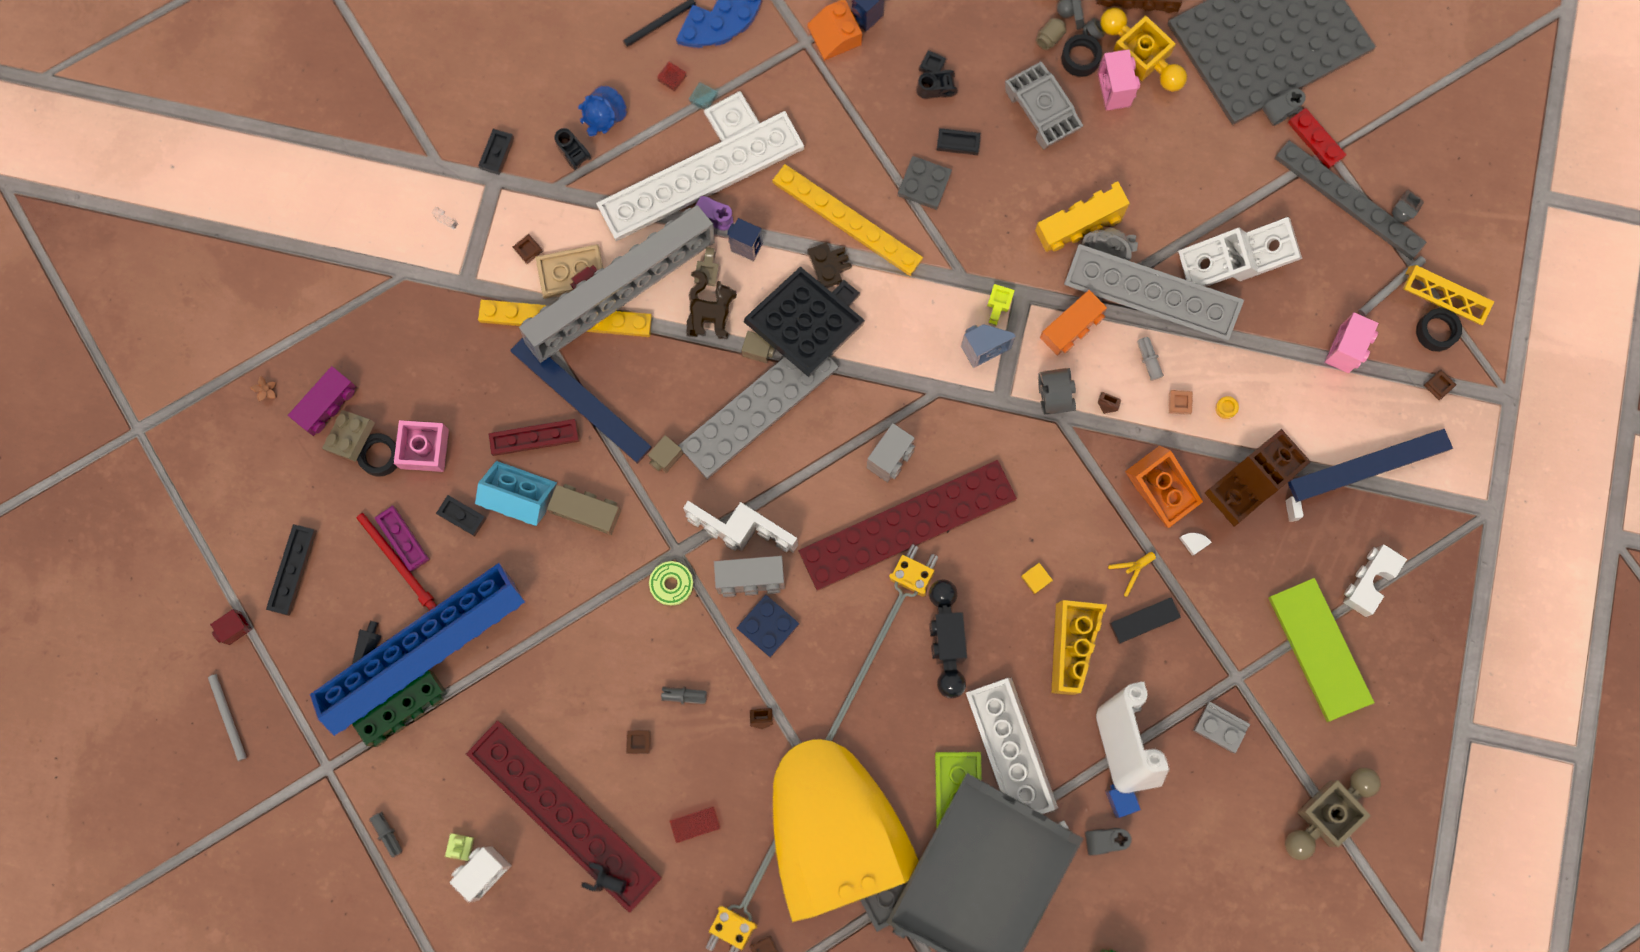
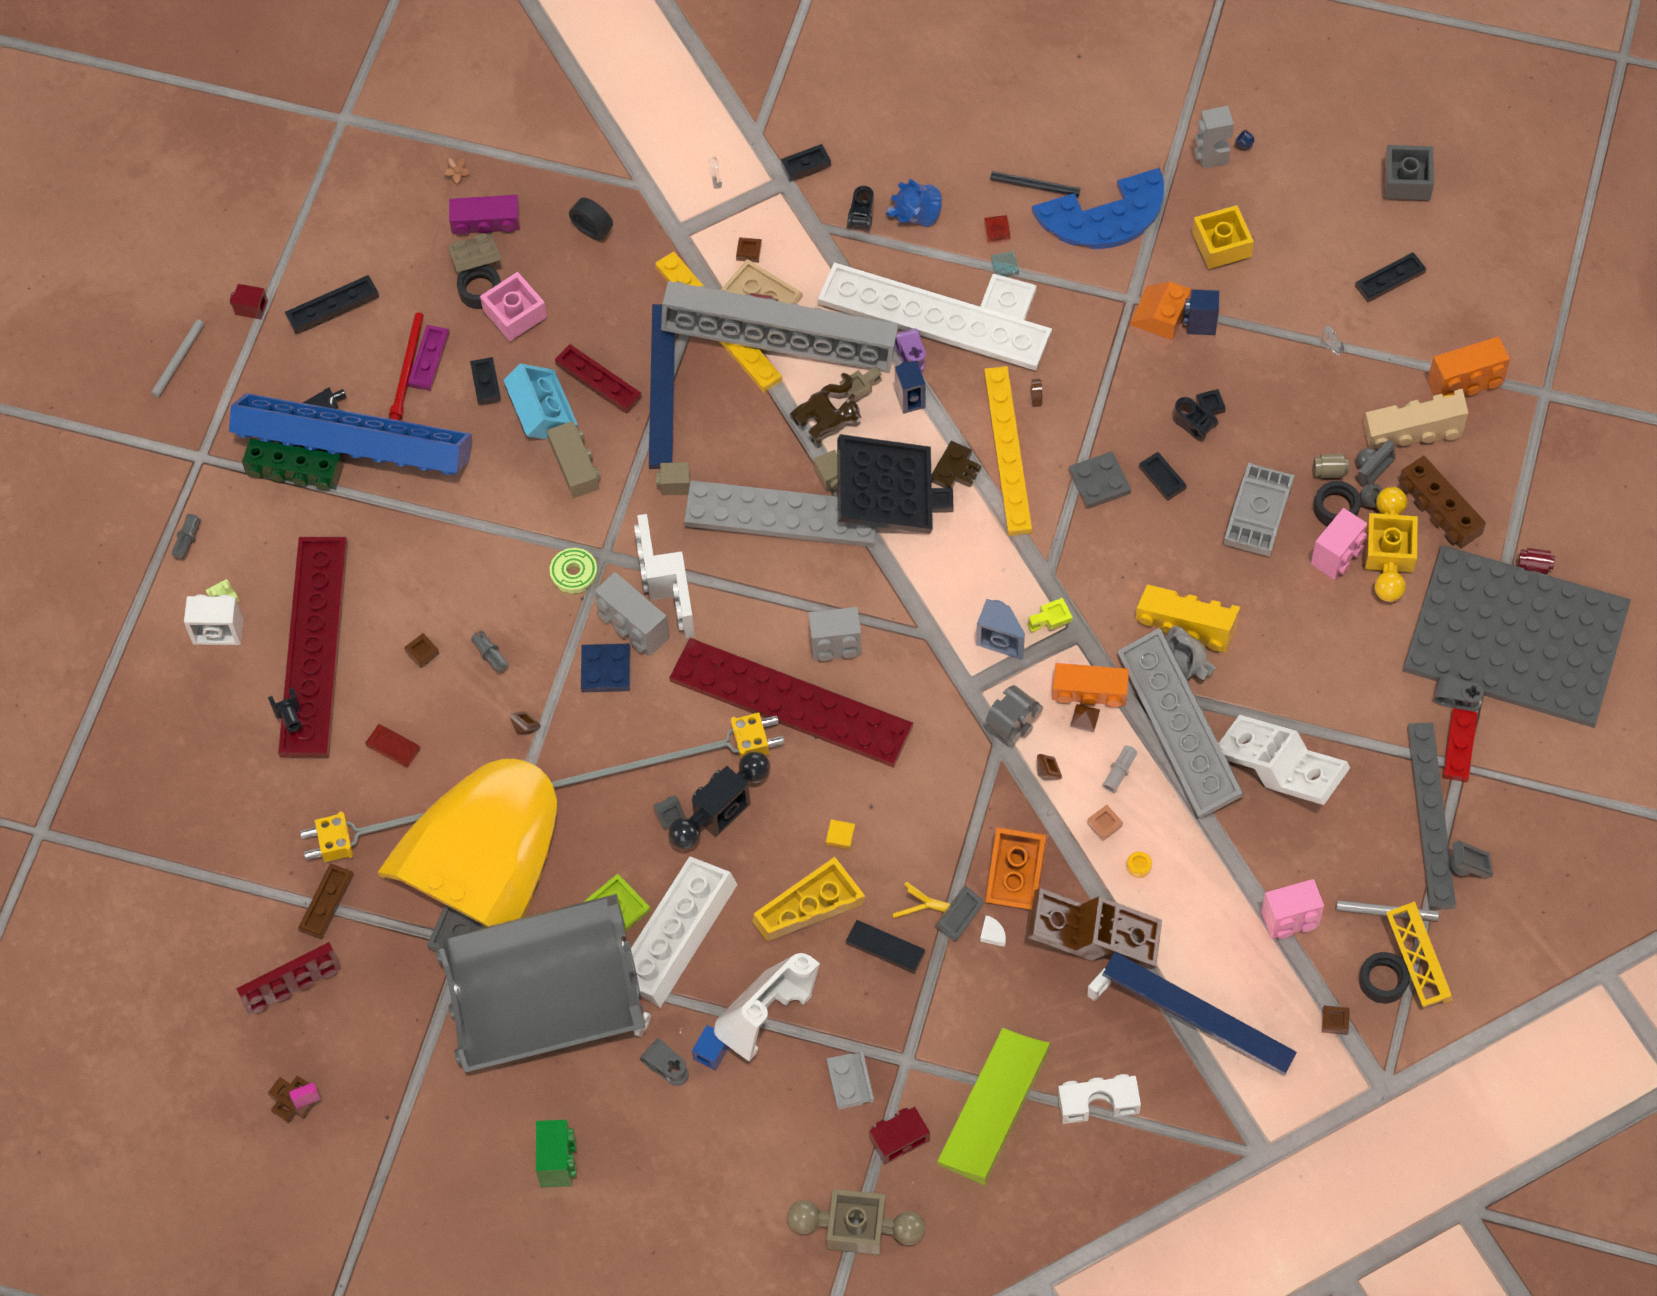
camera: 50 degrees right, 15 degrees down
(401, 332) = (590, 218): none -> black tyre
(822, 162) = (1036, 389): none -> reddish brown tile
(921, 678) = (668, 811): none -> dark grey tile
(1090, 347) = (1085, 718): none -> reddish brown slope
(1164, 552) = (959, 913): none -> dark grey tile
(1291, 730) = (899, 1134): none -> dark red brick

